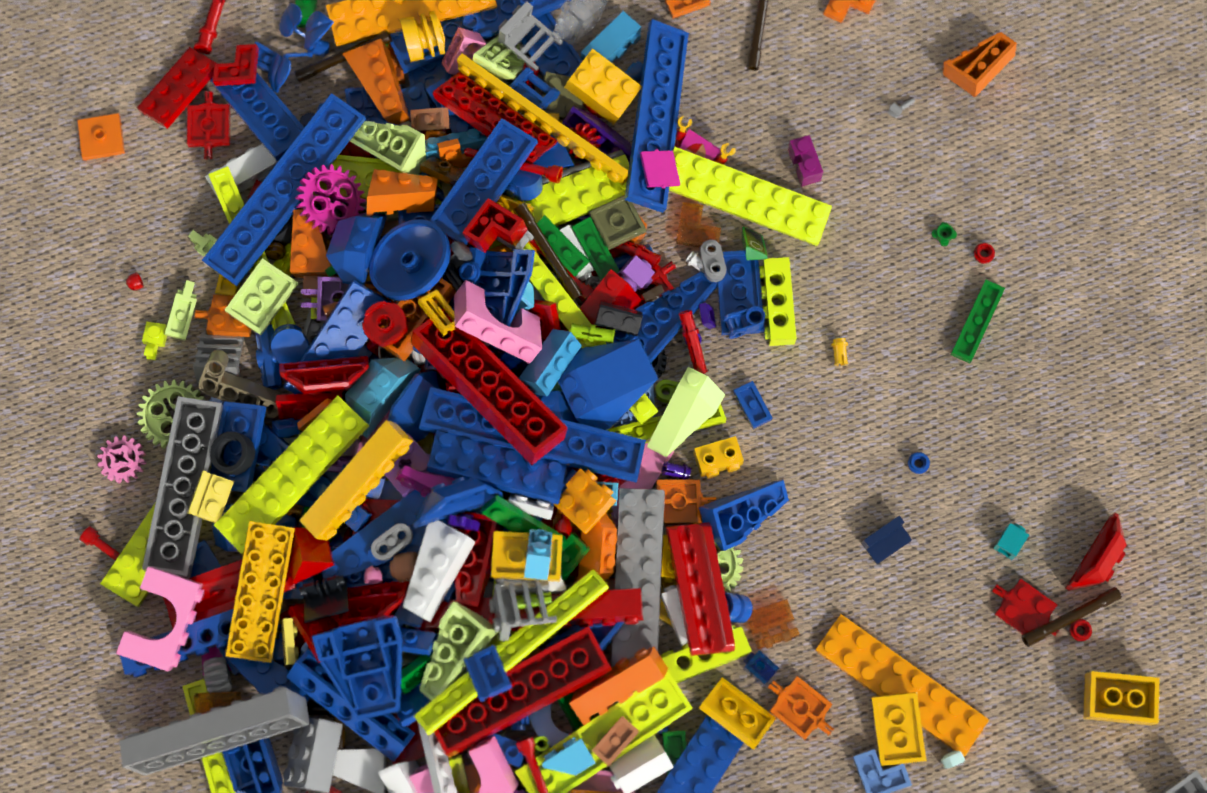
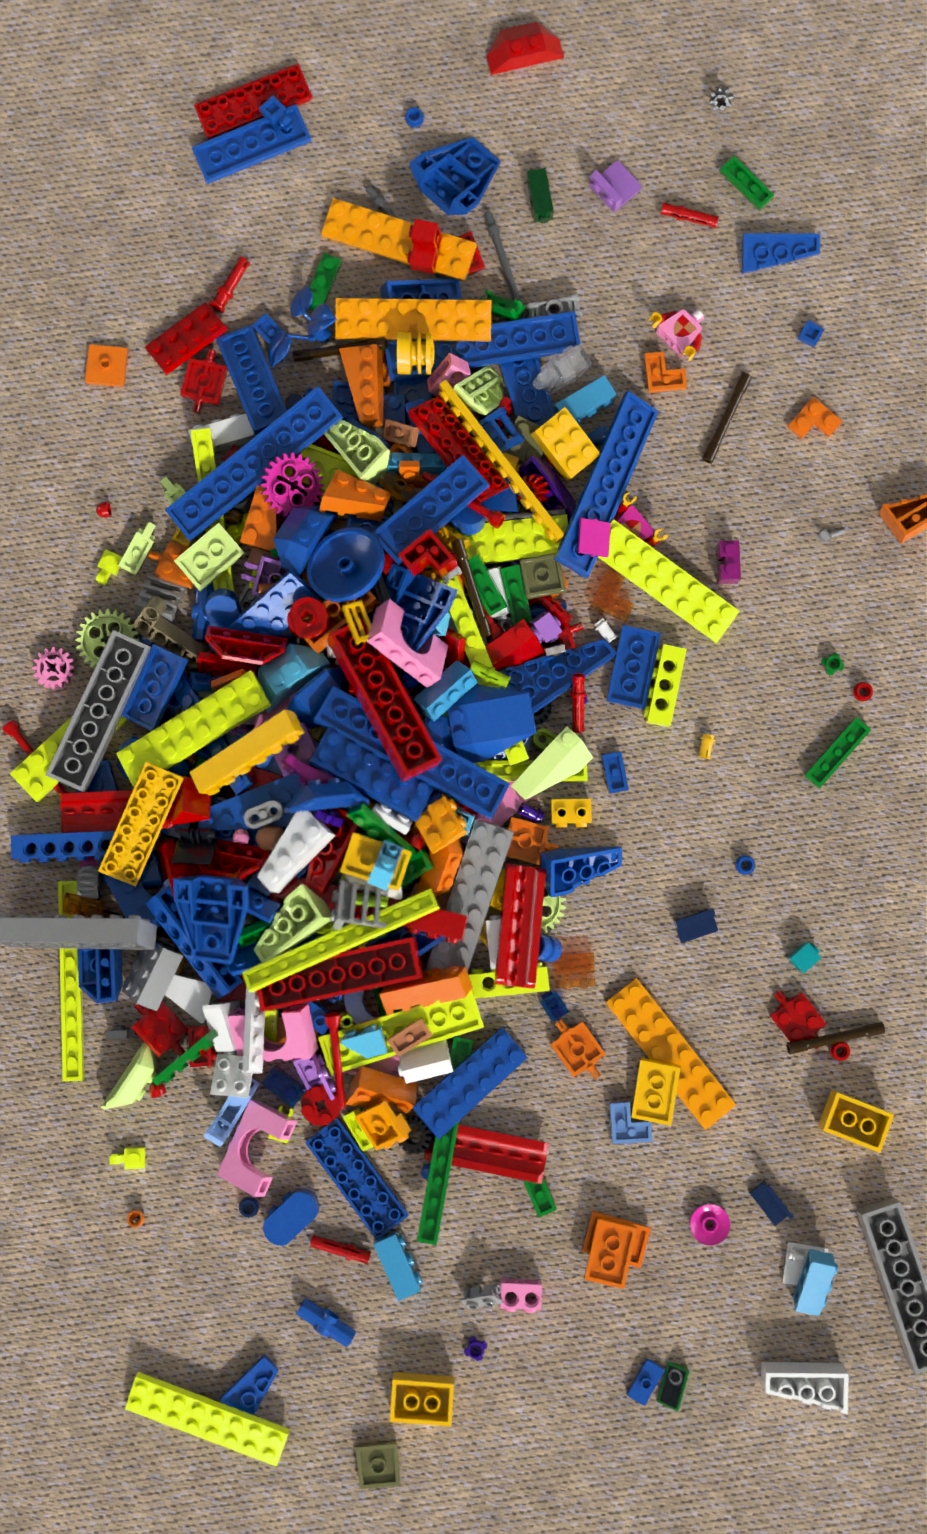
camera: 20 degrees right, 10 degrees up
(183, 595) = (74, 808): bright pink arch -> none
(210, 497) = (119, 727): light yellow plate -> none
(219, 446) = (135, 690): black tyre -> none
(241, 71) = (243, 340): red plate -> none
(289, 632) = (156, 881): light yellow plate -> none
(461, 254) = (392, 572): dark grey hair -> none
(470, 271) = (396, 590): blue plate -> none
(487, 673) = (313, 956): blue plate -> none
(517, 27) = (504, 366): light grey plate -> none
(619, 318) = (517, 666): black brick -> none
(707, 315) = (598, 681): dark purple tile -> none
(711, 260) = (617, 632): light grey plate -> none
(737, 713) = (522, 1039): yellow plate -> none
(742, 321) = (627, 697): blue piece -> none
(753, 245) = (658, 628): slope -> none
(952, 759) = (694, 1130): light aqua tile -> none
(1101, 556) = (879, 992): red wedge -> none

